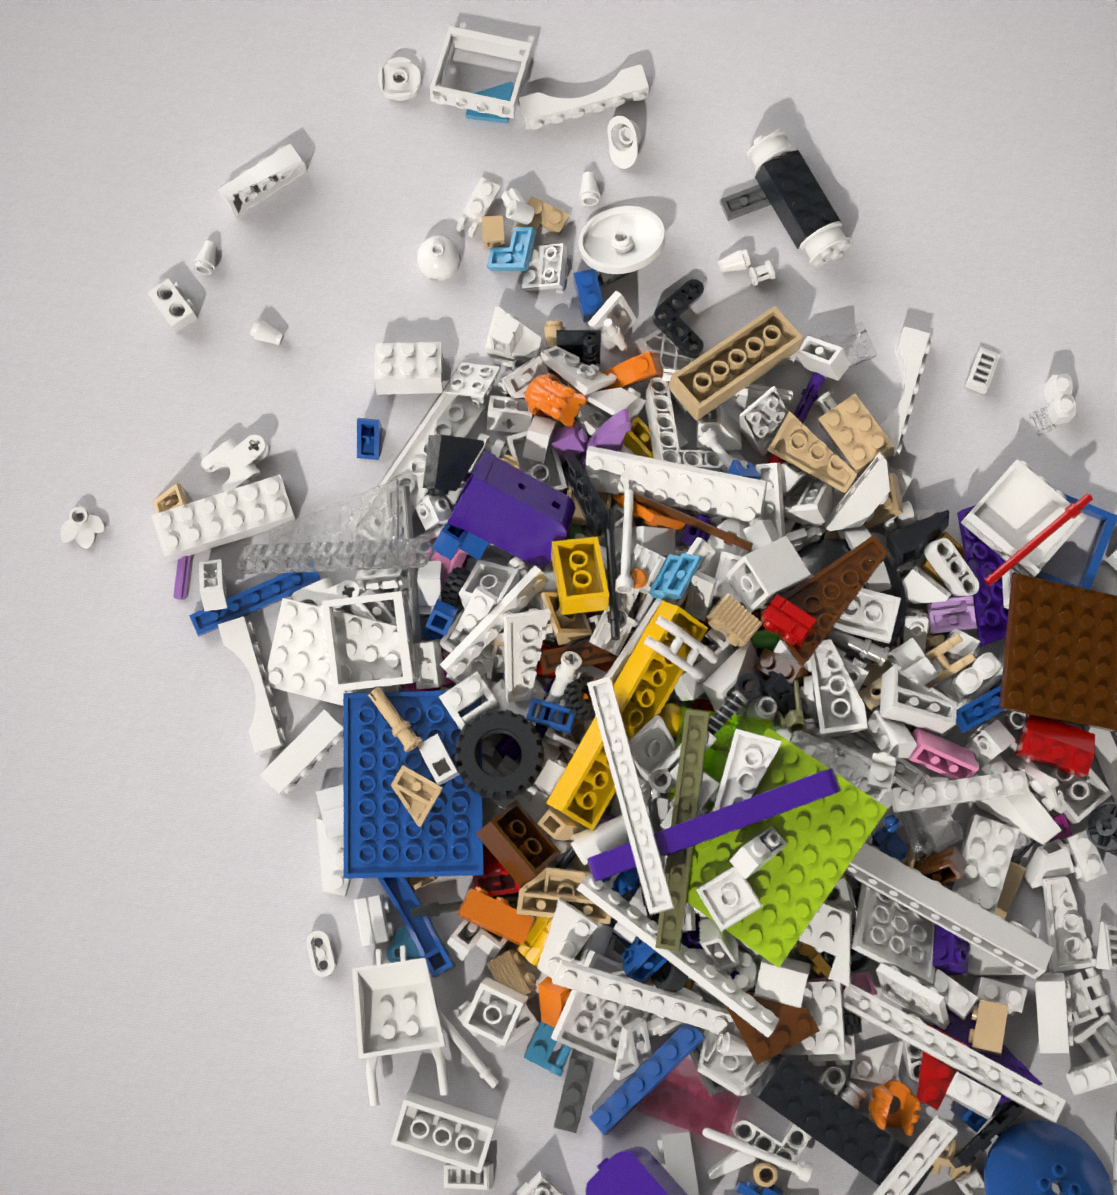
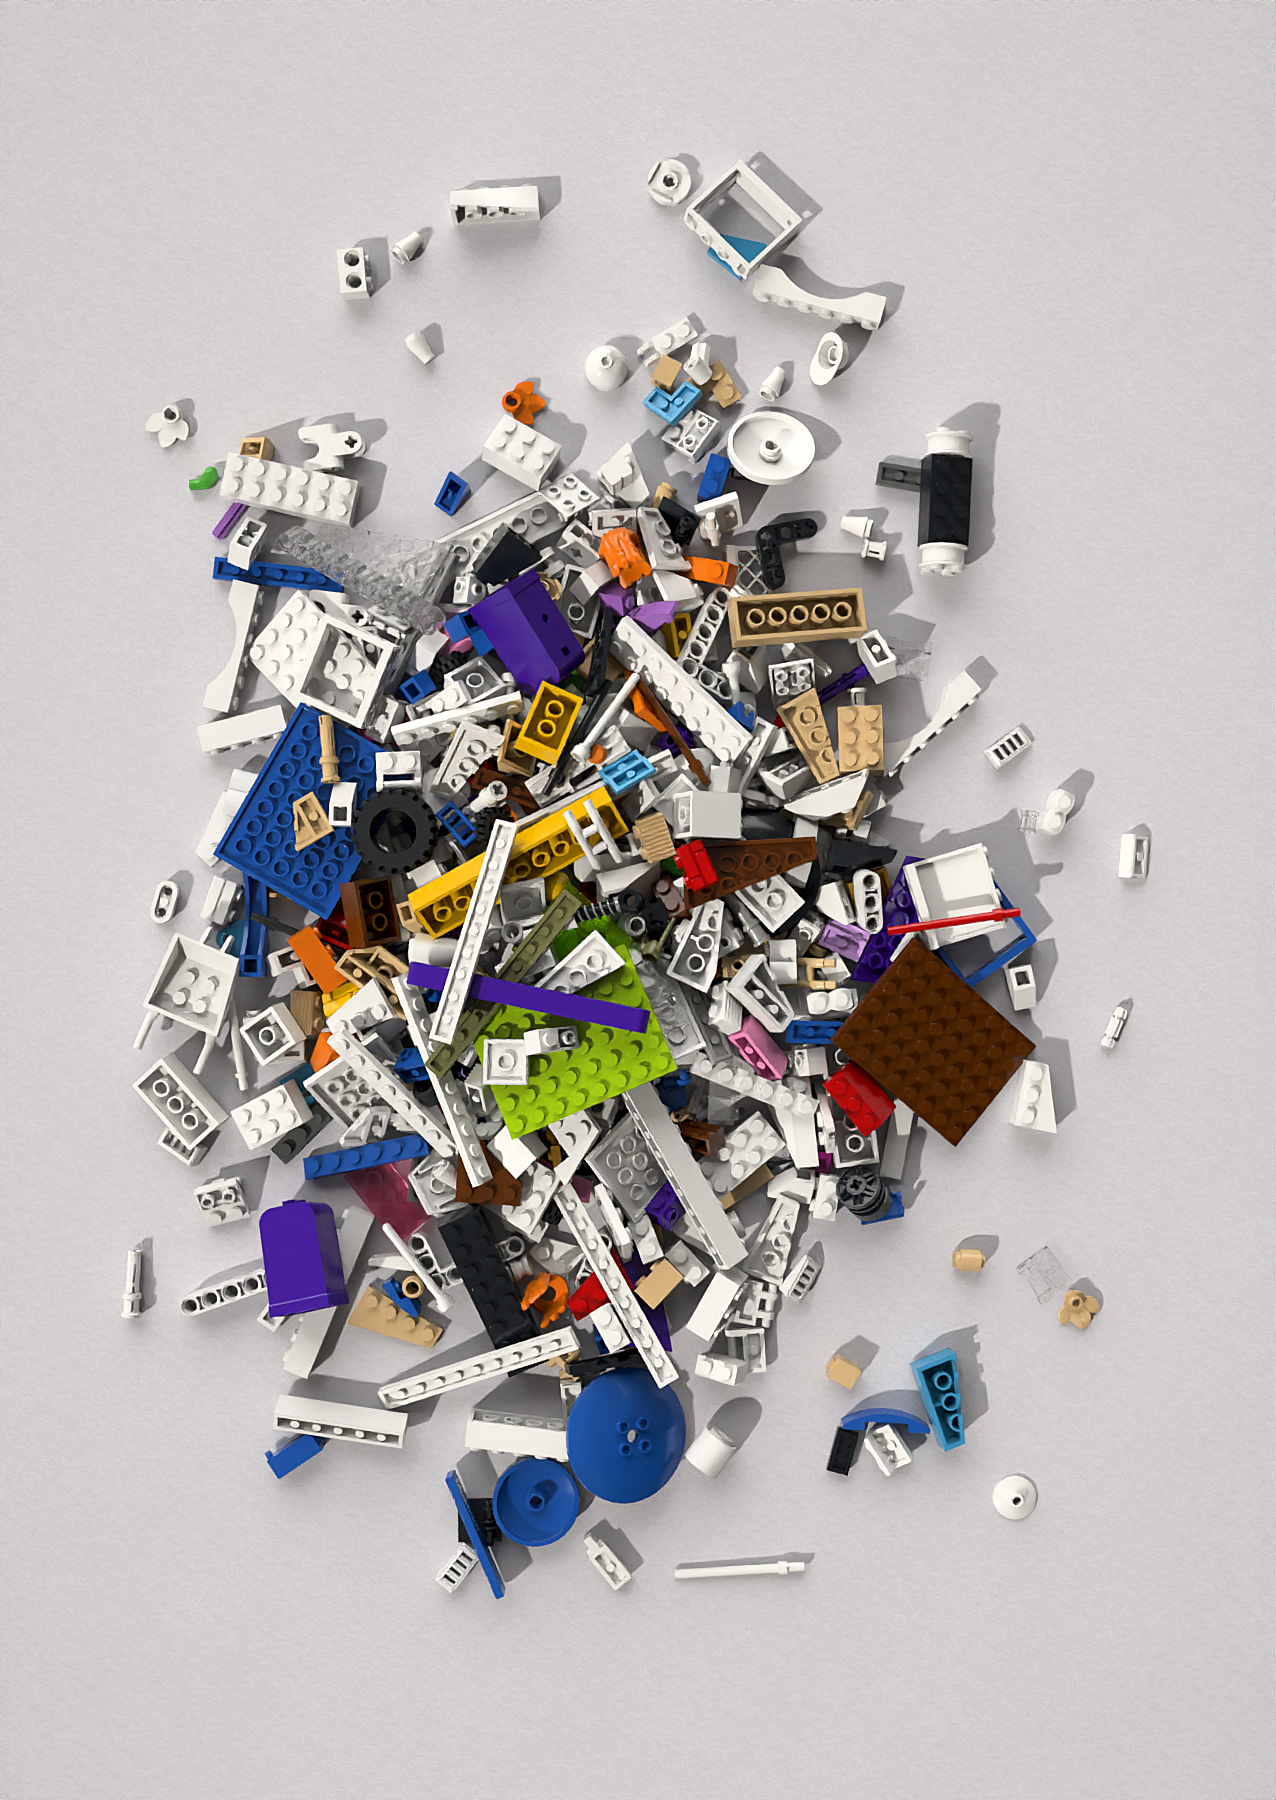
camera: 30 degrees right, 10 degrees up
(143, 555) = (206, 481): none -> bright green arm
(385, 325) = (526, 403): none -> orange plate
(536, 1091) = (272, 1114): none -> white brick
(882, 771) = (696, 1035): white bracket -> none

